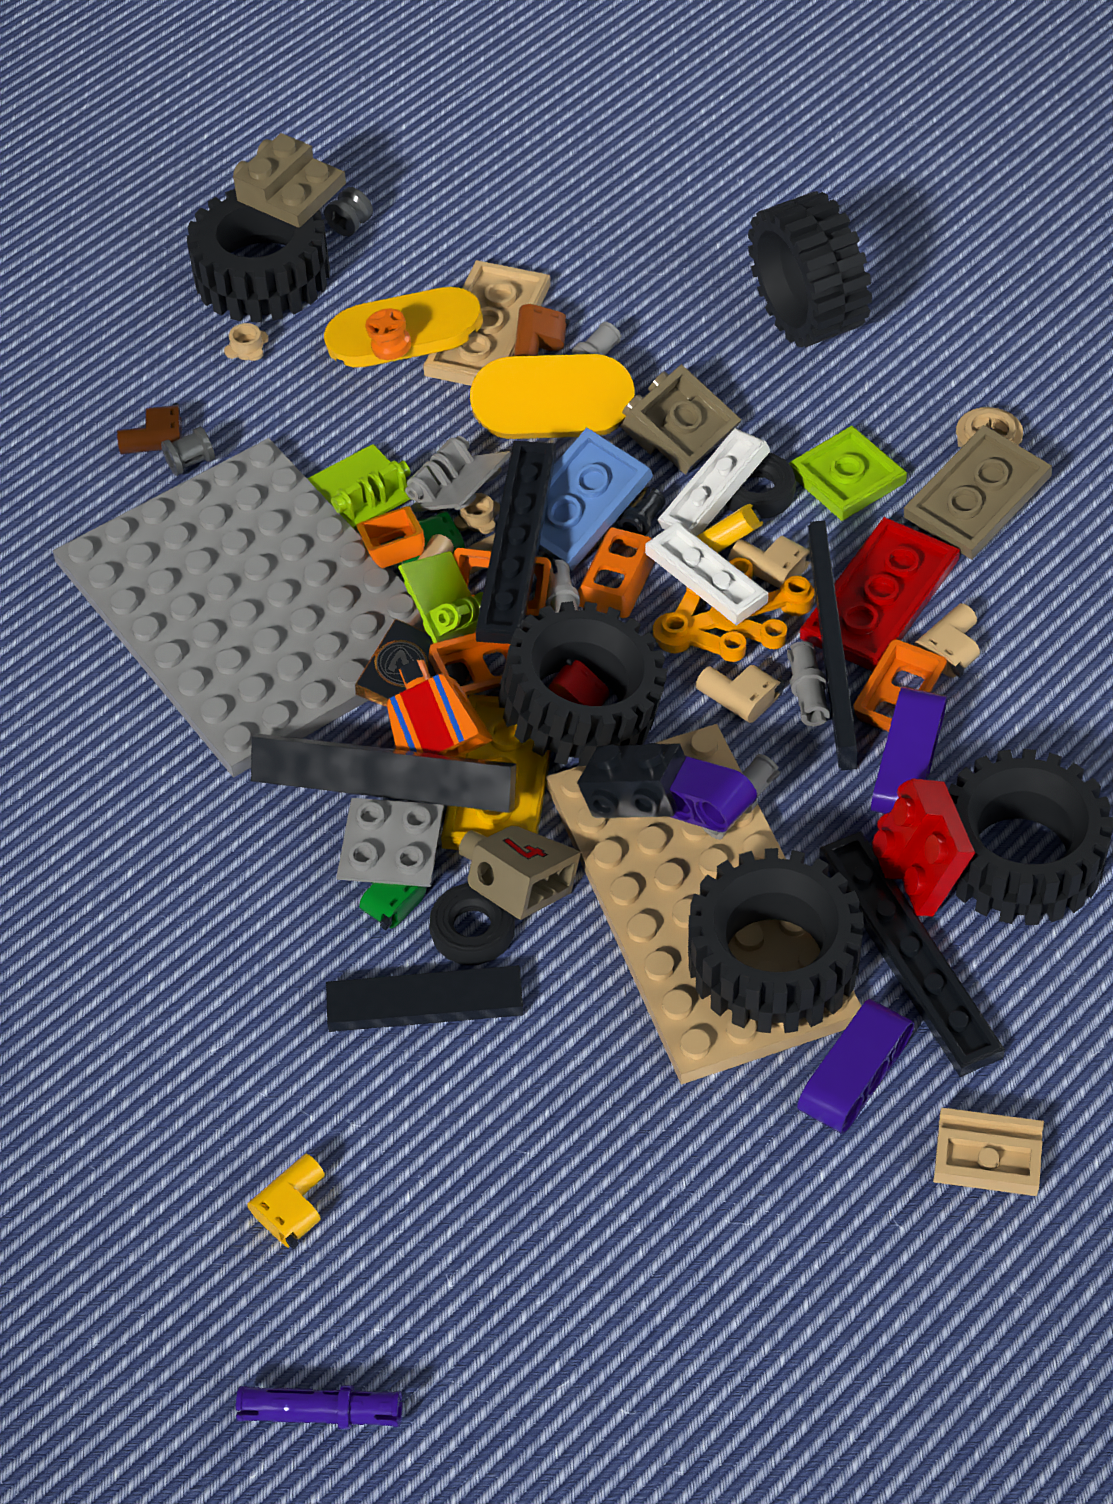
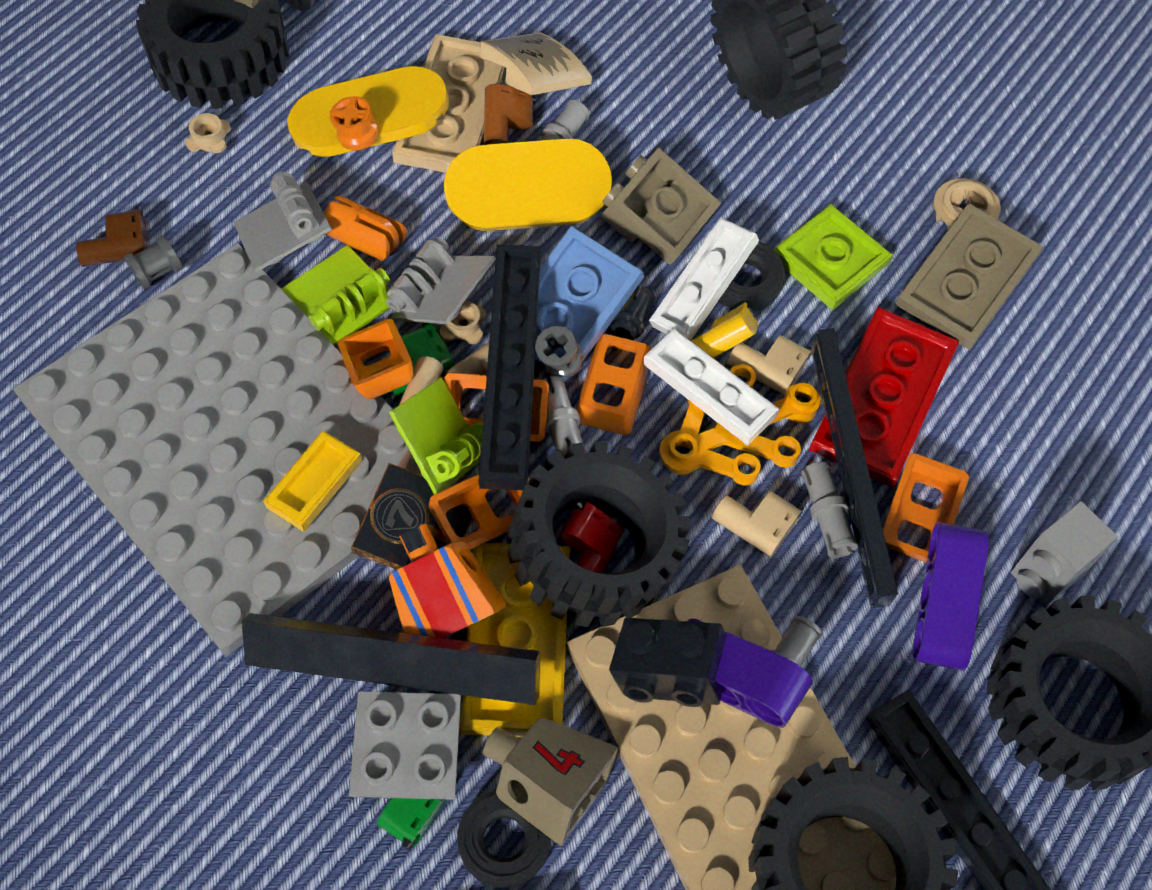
camera: 10 degrees left, 10 degrees up
(314, 421) = (282, 223): none -> light grey hinge
(324, 632) = (313, 480): none -> yellow tile
(388, 428) = (364, 228): none -> orange arm
(559, 538) = (561, 338): none -> dark grey bush
(572, 288) = (536, 63): none -> tan slope
(923, 843) = (991, 718): red plate -> none
(950, 641) = (963, 450): tan piece -> none
(1020, 717) = (1063, 554): none -> light grey brick

